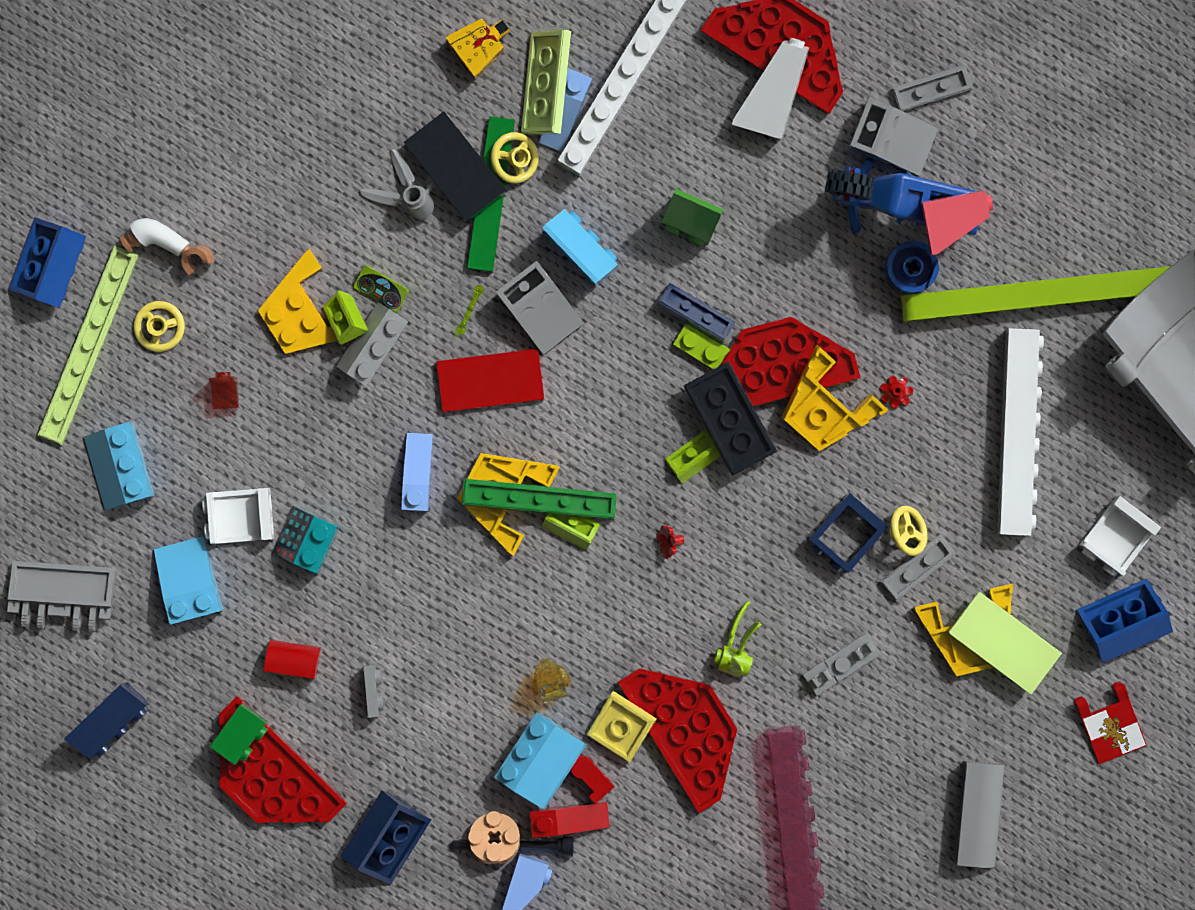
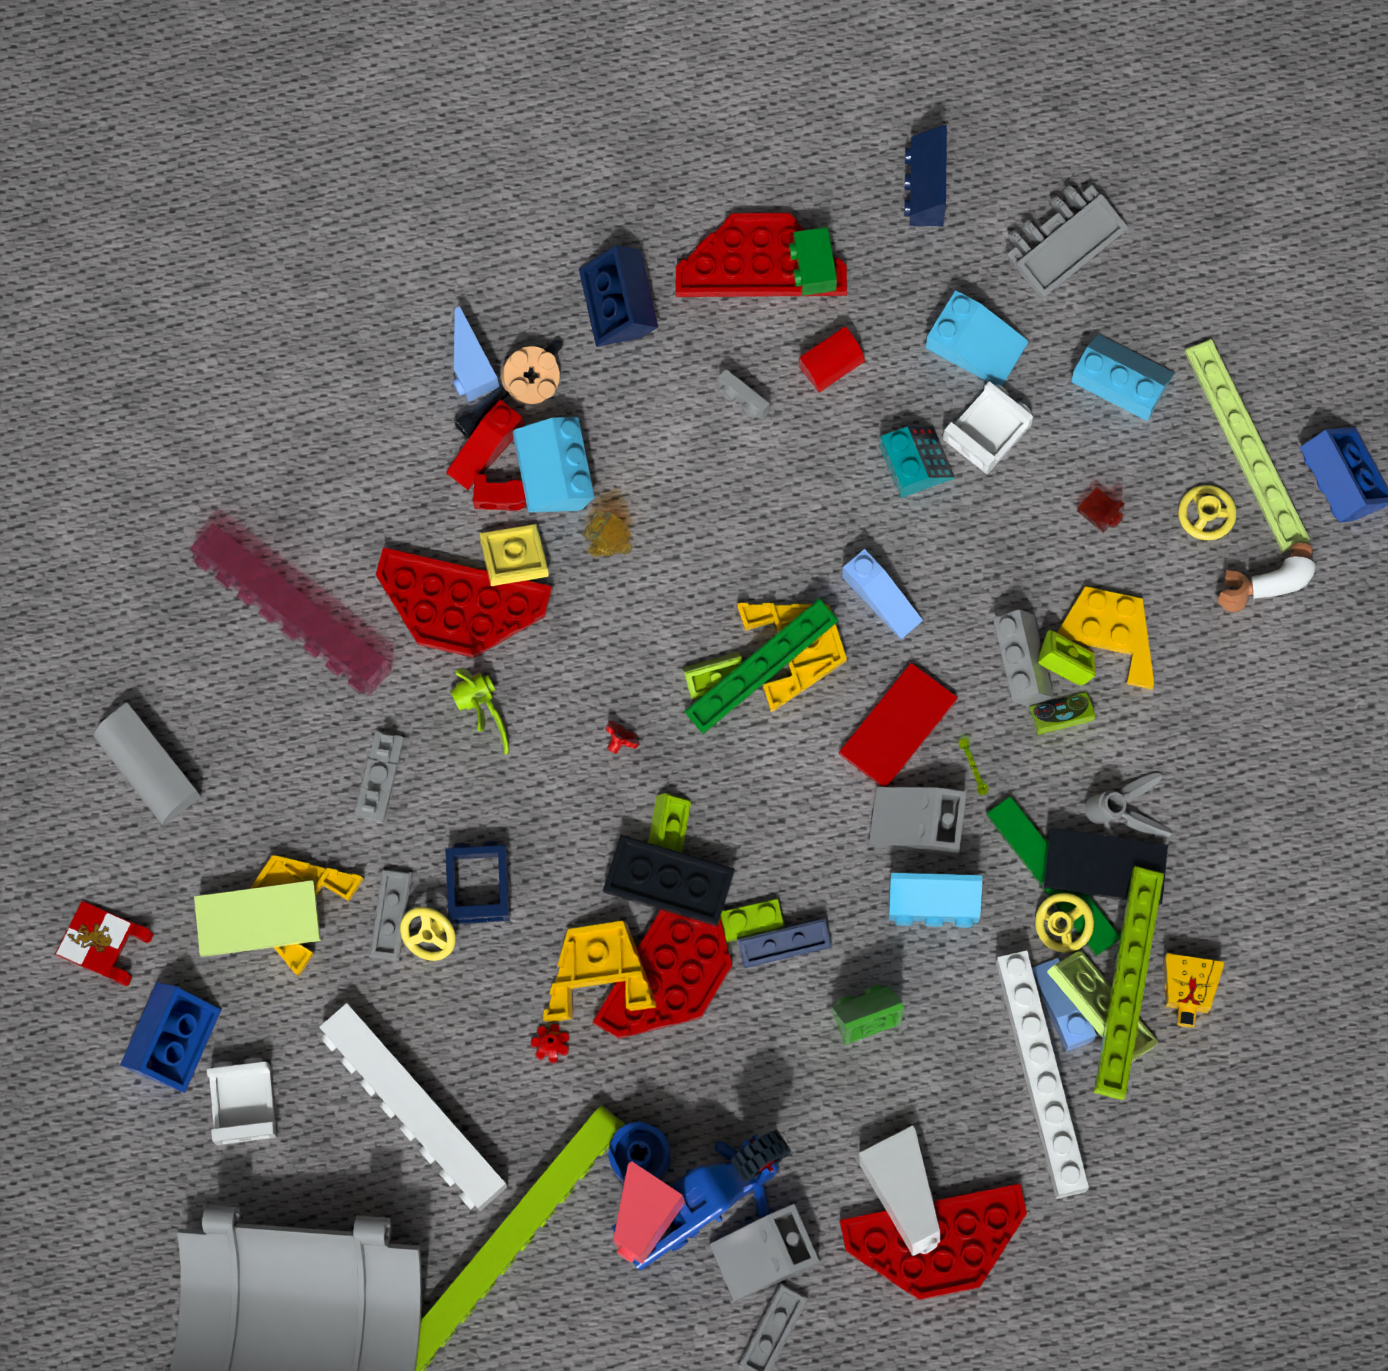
camera: 140 degrees right, 15 degrees down
(517, 78) = (1128, 983): none -> lime tile

